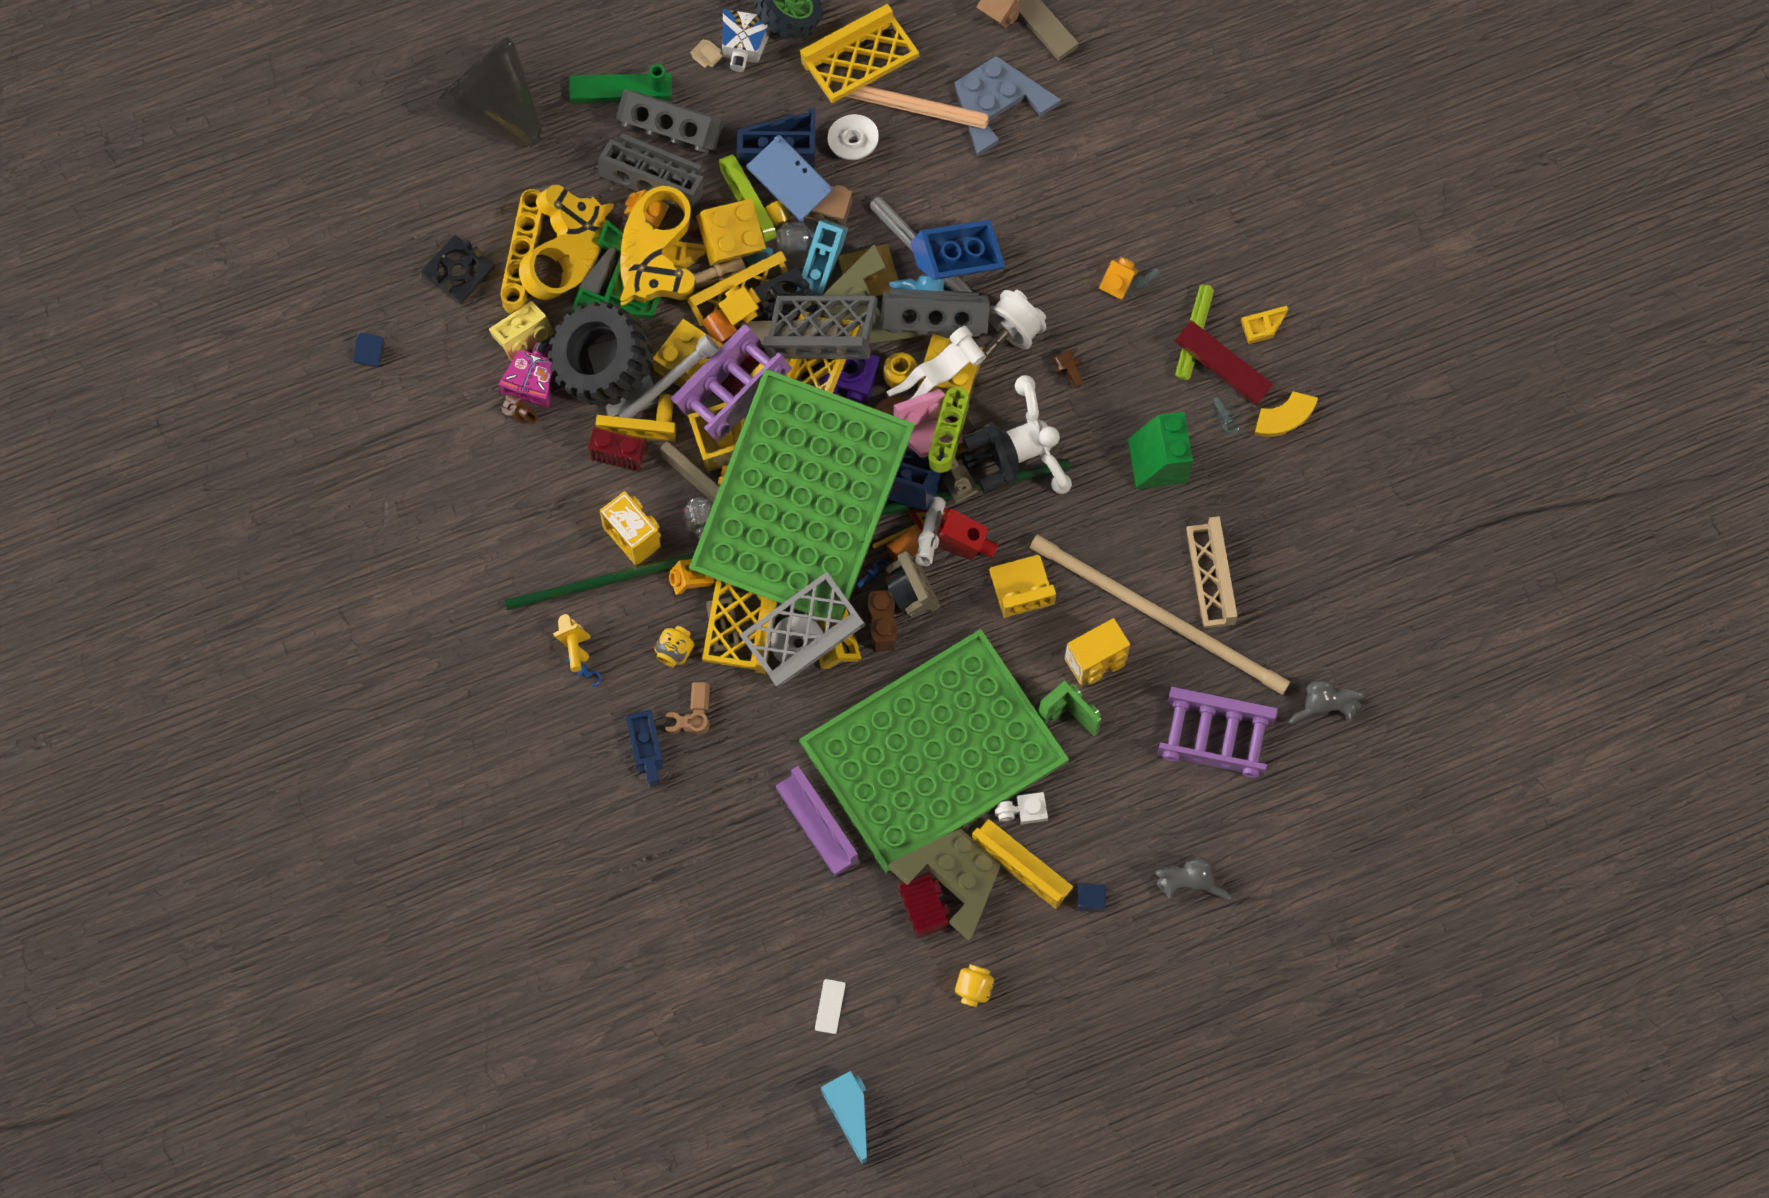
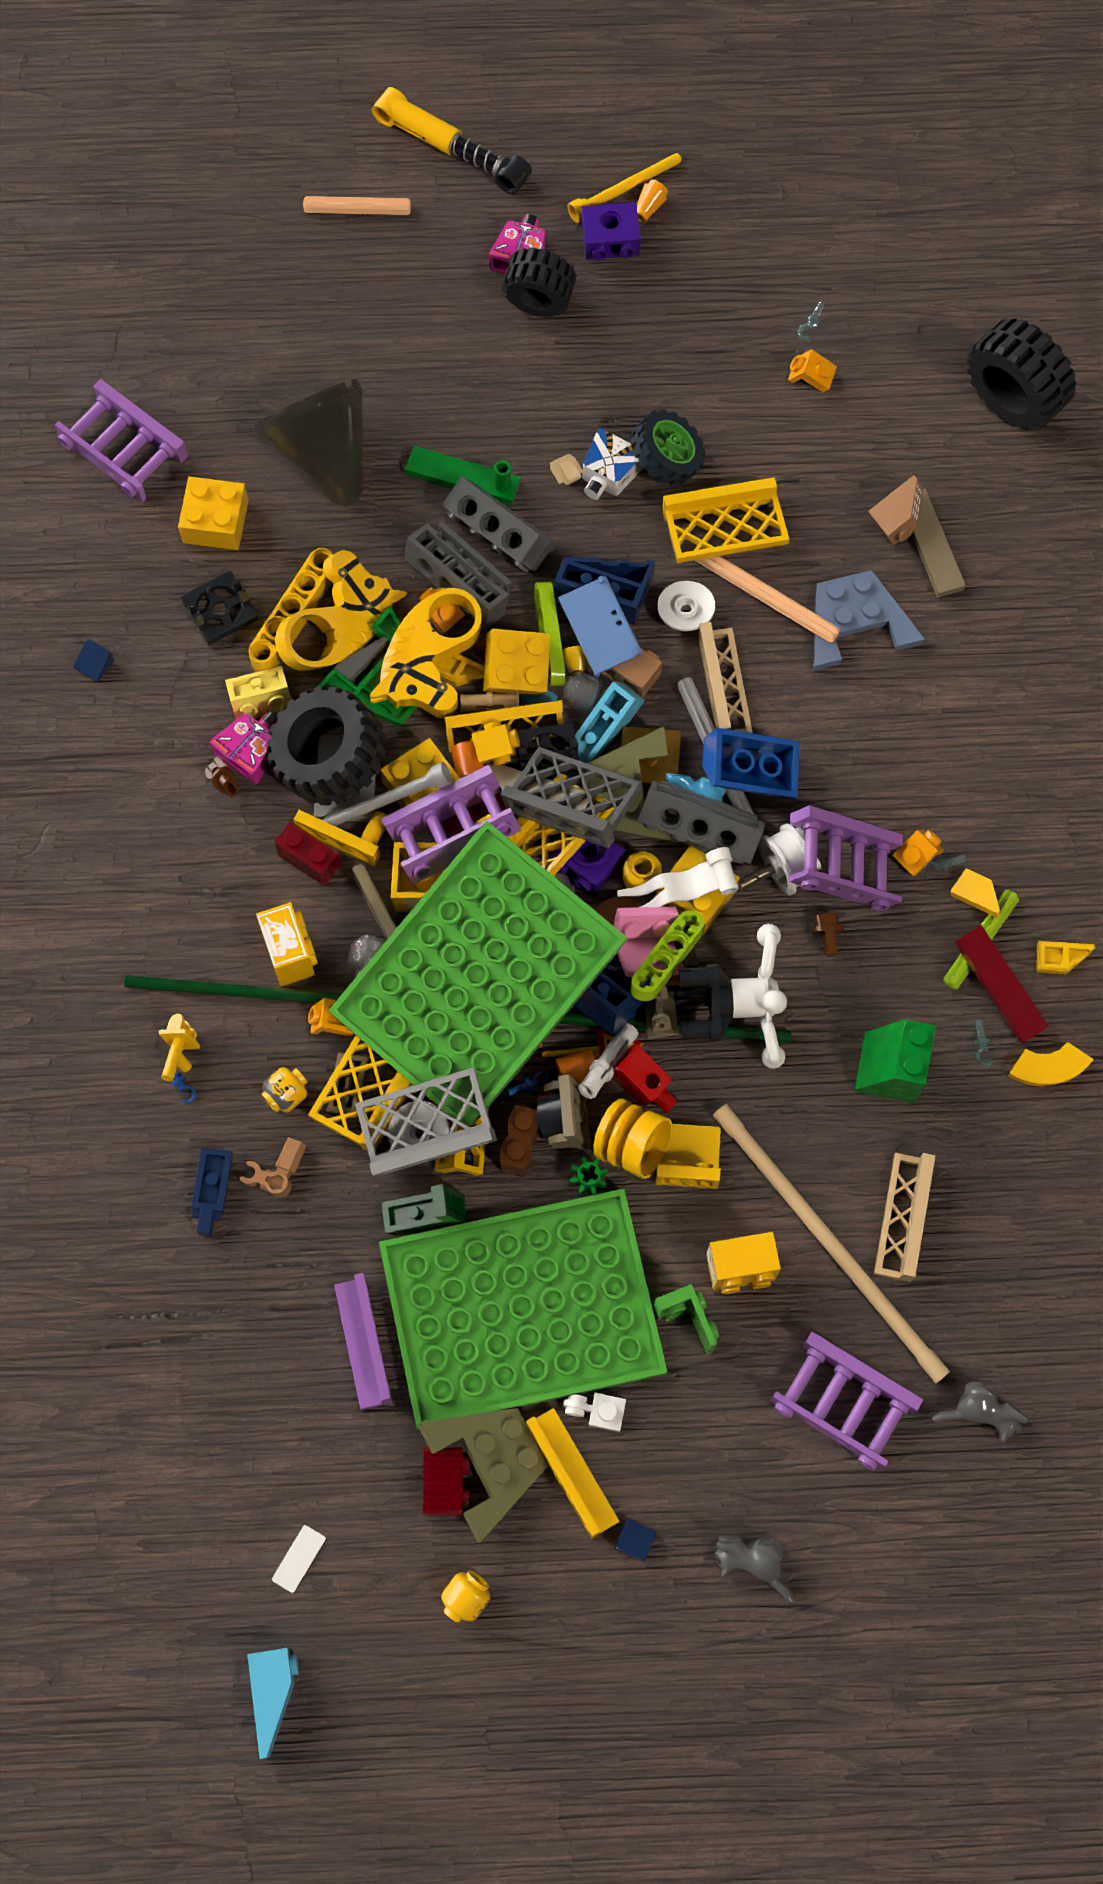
camera: 20 degrees right, 0 degrees up
(315, 129) = (127, 415): none -> medium lavender fence
(421, 190) = (213, 513): none -> yellow brick
(826, 701) = (425, 1210): none -> bracket
(903, 194) = (715, 680): none -> tan fence
(945, 622) = (592, 1184): none -> green gear
(974, 585) = (632, 1138): none -> yellow wheel
(1067, 281) = (859, 836): none -> medium lavender fence
(1178, 295) = (977, 892): none -> yellow tile

